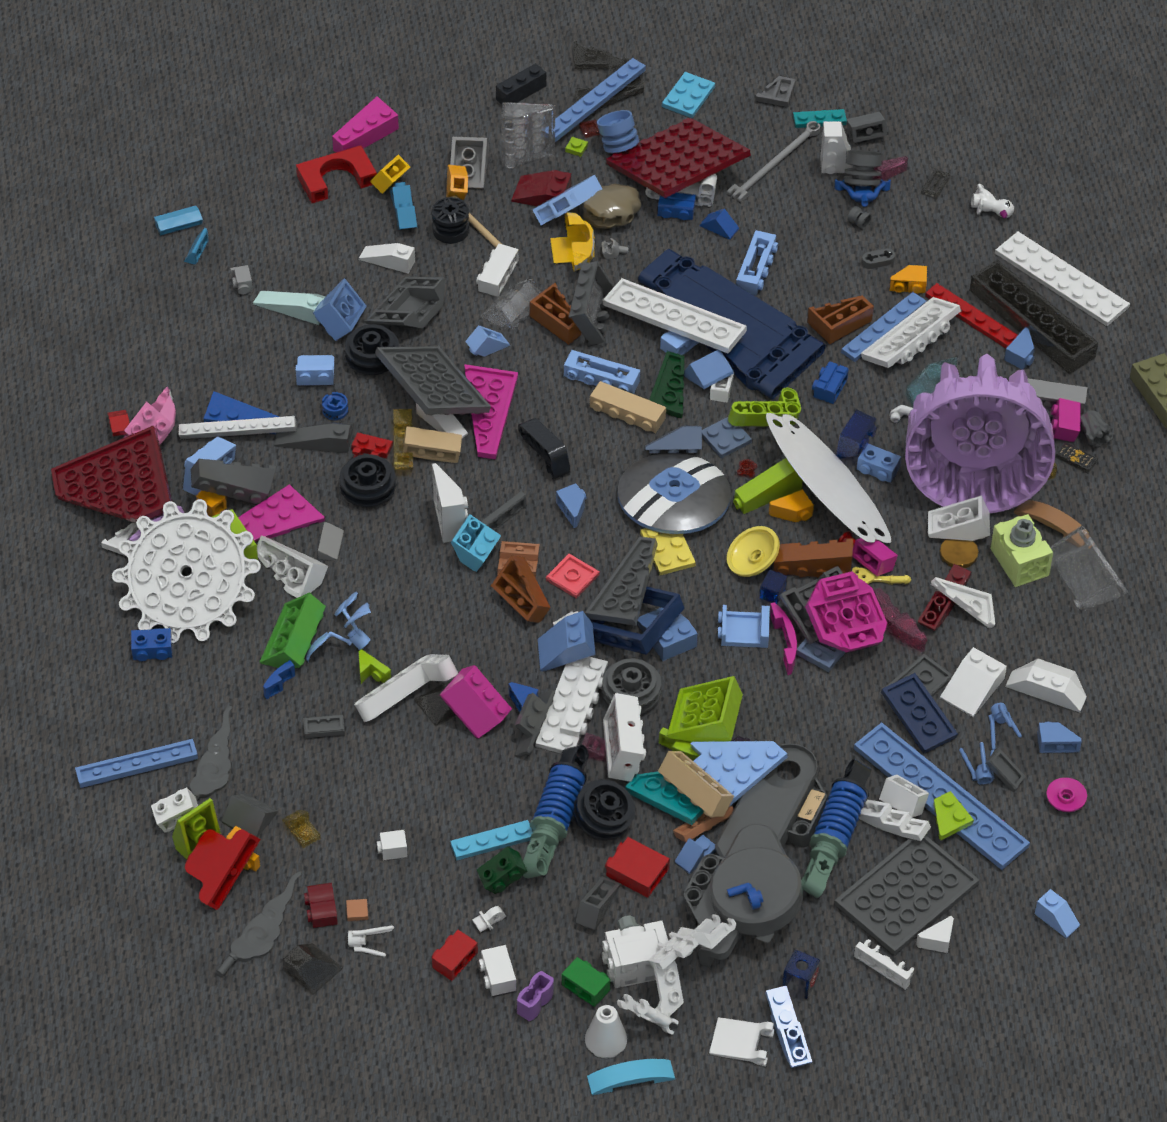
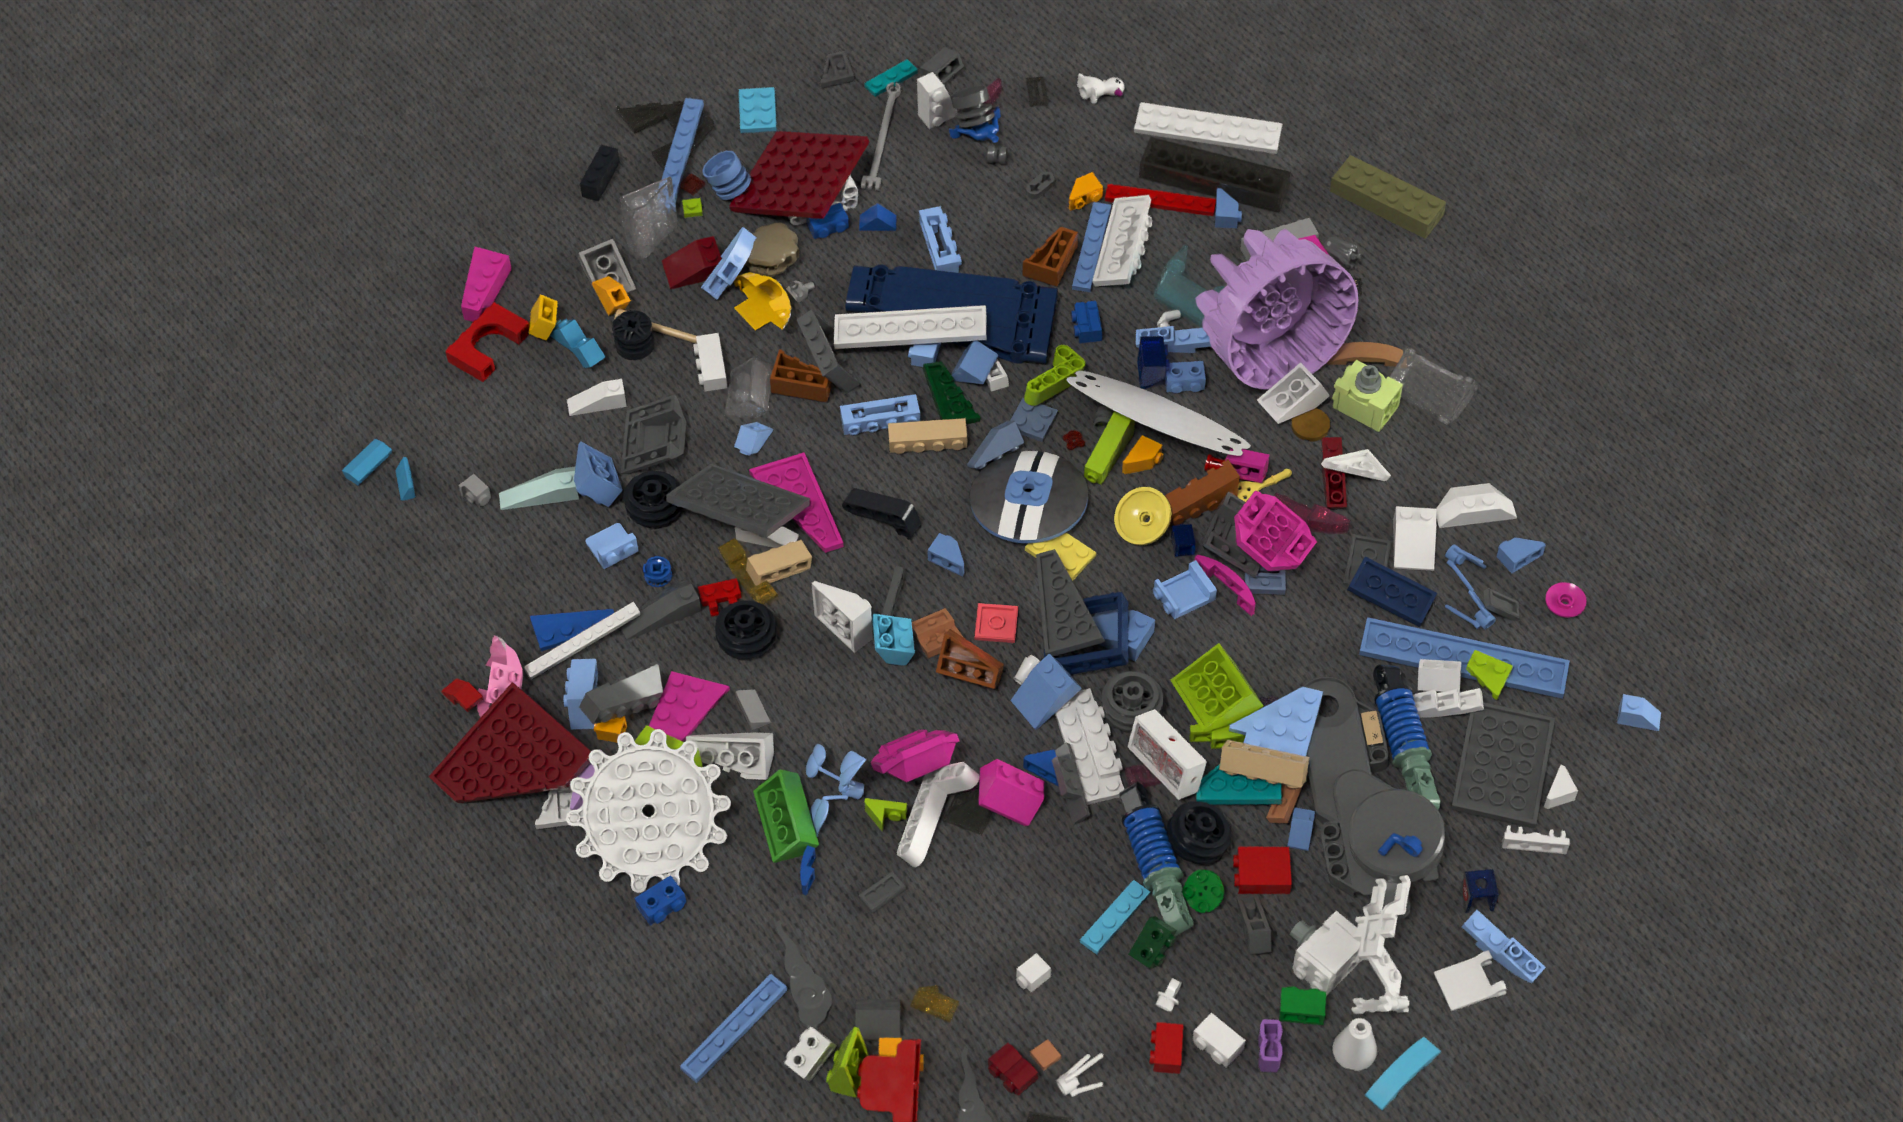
camera: 30 degrees left, 5 degrees up
(423, 636) = (915, 754): none -> dark pink piece
(575, 856) = (1197, 884): none -> green plate
(889, 428) = (1178, 340): none -> light blue slope

